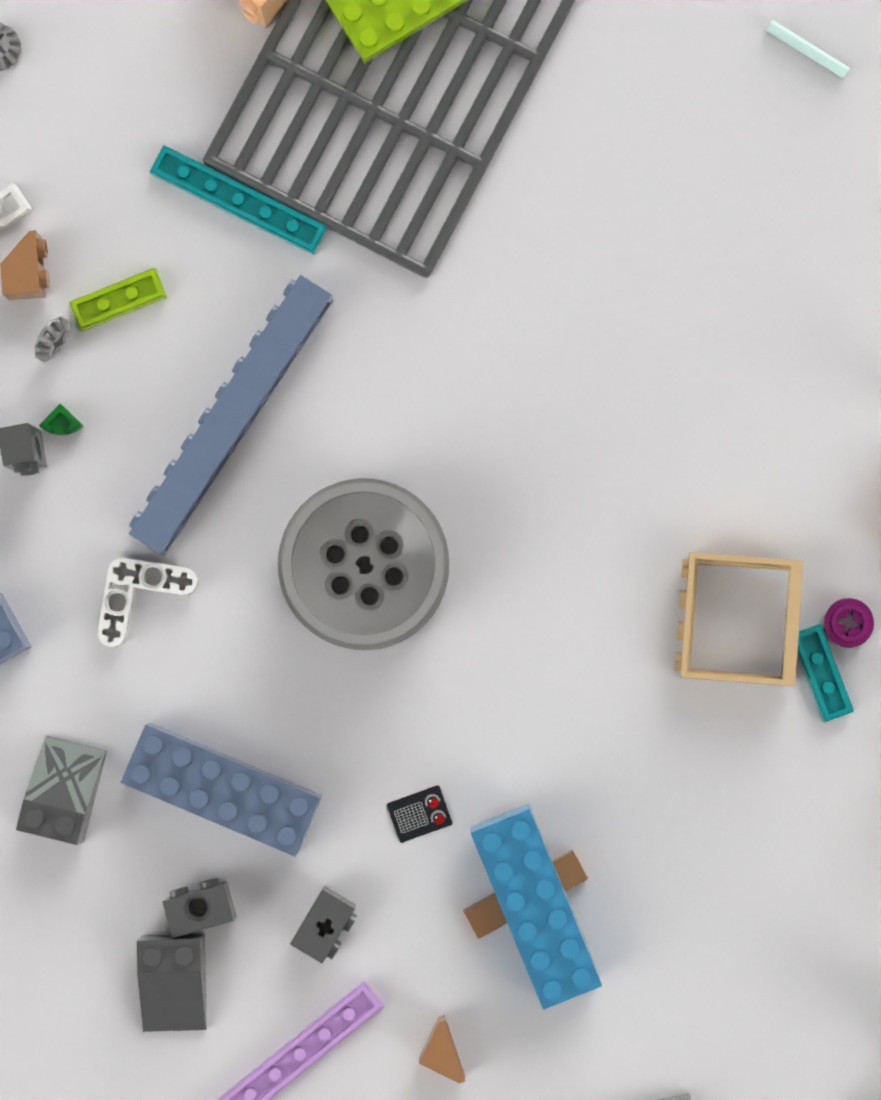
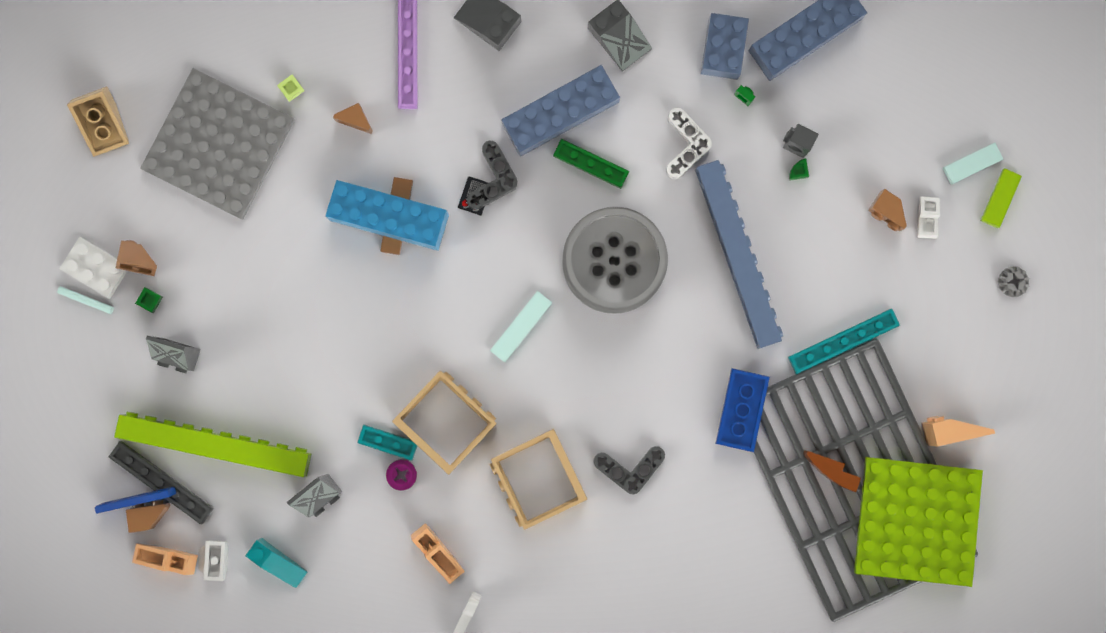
camera: 130 degrees right, 0 degrees up
(15, 566) = (745, 94): none -> green plate
(52, 339) = (843, 196): light grey gear -> none
(118, 299) = (839, 244): lime tile -> none
(184, 920) = (512, 46): dark grey brick -> none
(260, 696) = (591, 163): none -> green tile
(310, 938) = (455, 98): dark grey brick -> none
(378, 795) = (498, 182): none -> dark grey beam
(414, 86) = (833, 471): none -> dark orange slope
(426, 258) = (742, 410): none -> blue tile
(541, 619) = (521, 326): none -> light aqua tile
(622, 338) = (627, 476): none -> dark grey beam
(768, 456) = (512, 500): none -> tan window

